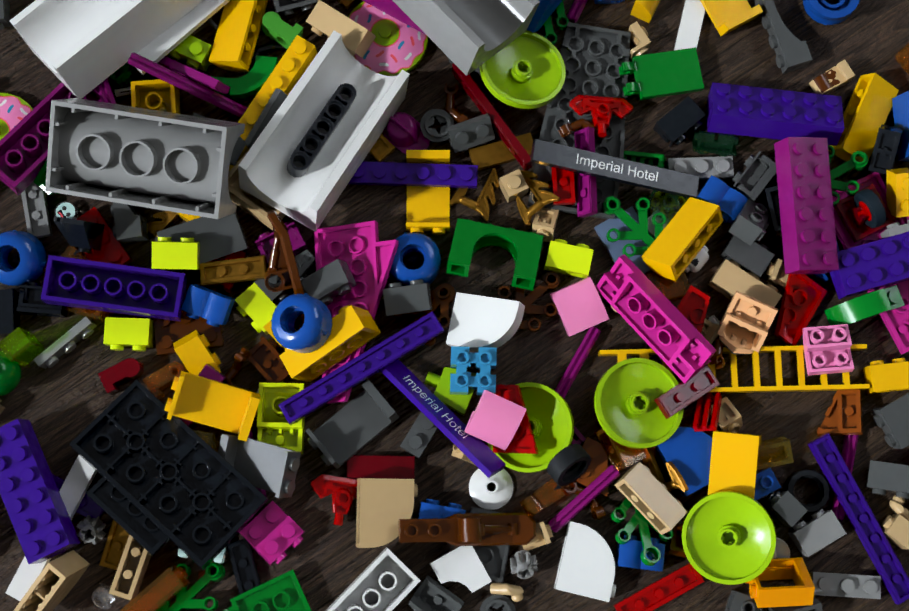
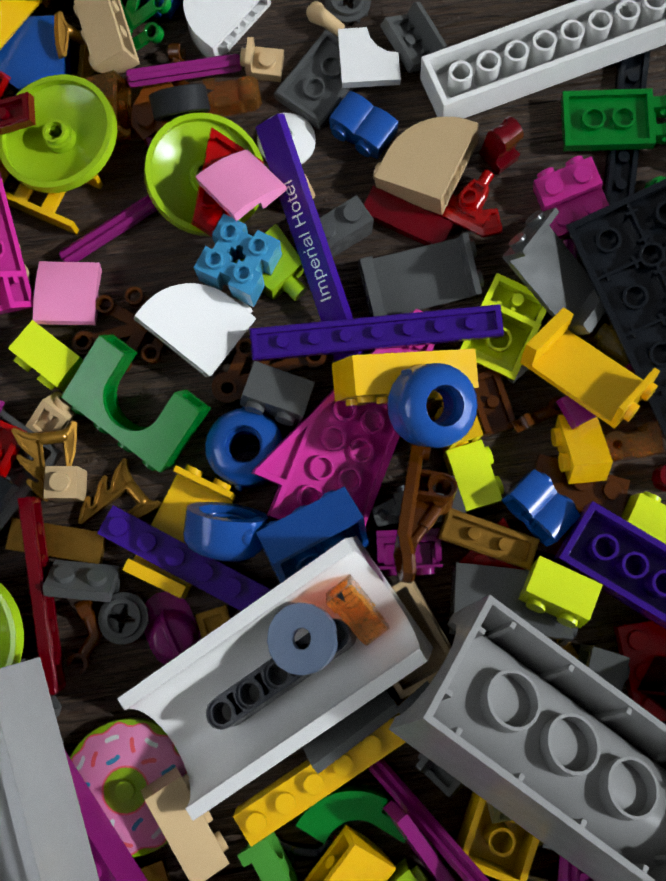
camera: 155 degrees left, 0 degrees up
(293, 181) = (356, 610): none -> clear orange leg
(321, 138) = (282, 639): none -> sand blue tile
(329, 282) = (369, 460): dark grey brick -> none
(337, 547) = (500, 145): none -> dark red leg
(343, 220) = (311, 532): none -> blue slope
(398, 201) = (223, 530): none -> blue piece
(470, 529) = (336, 89): reddish brown piece -> none
(523, 564) = (291, 33): light grey gear -> none

